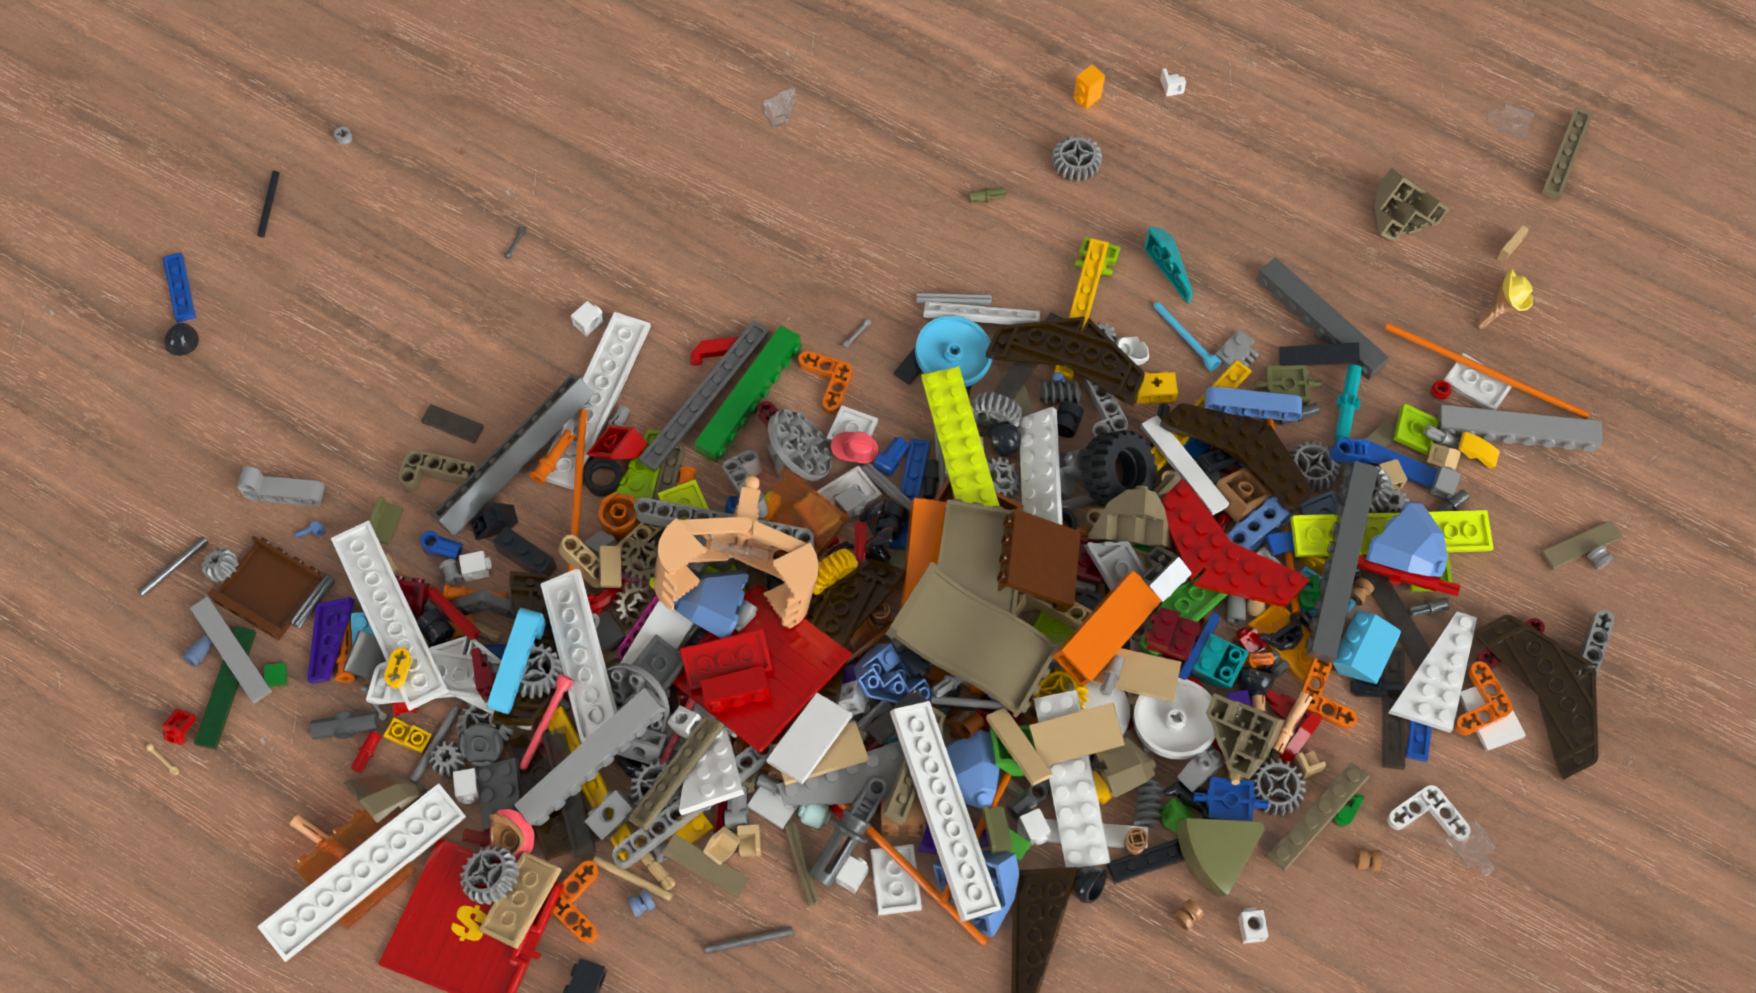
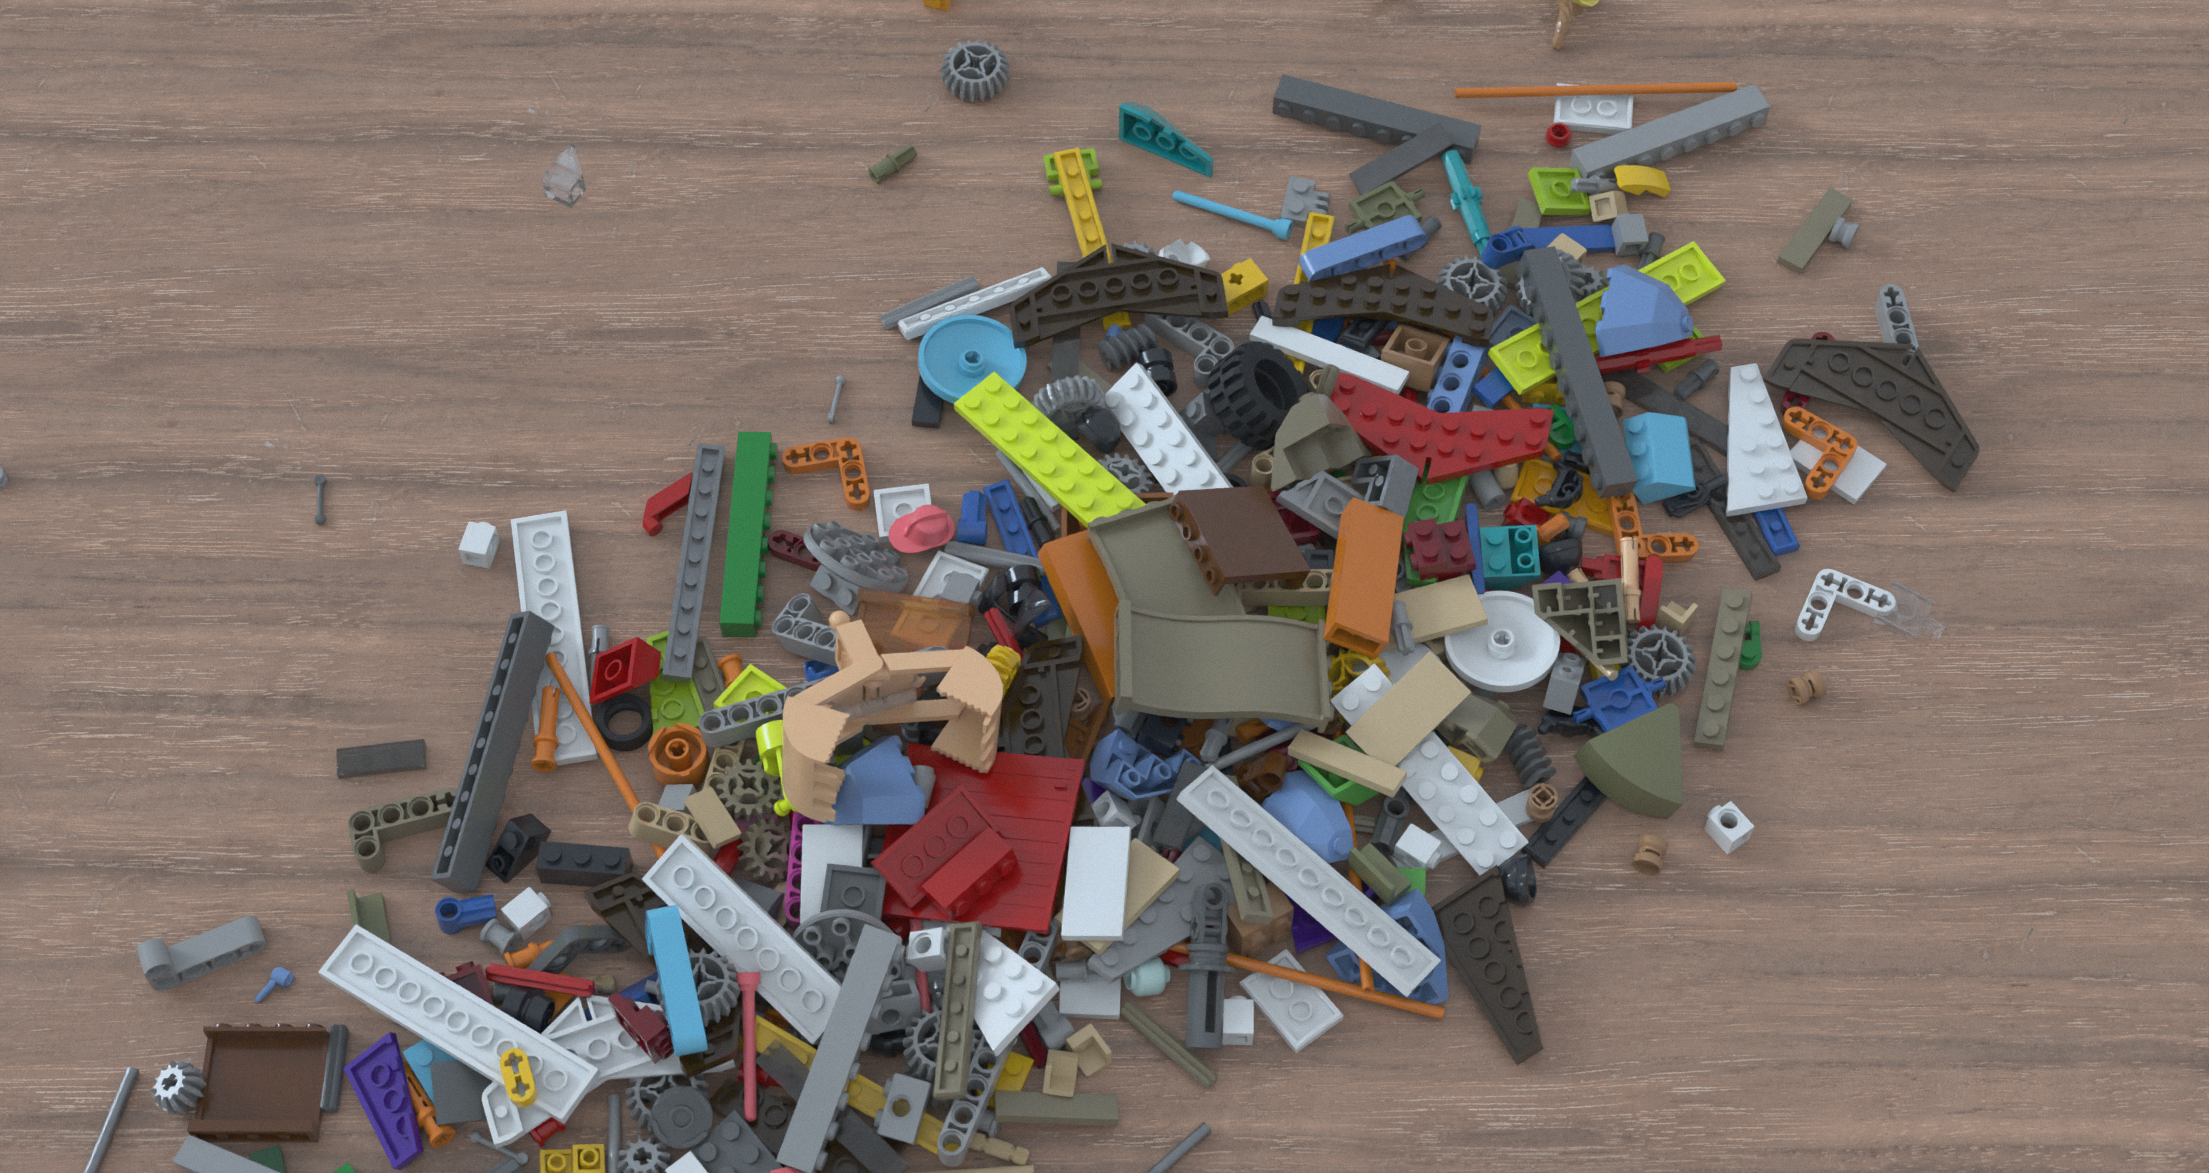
camera: 30 degrees left, 5 degrees down
(1173, 812) = (1562, 752): bright green panel -> none

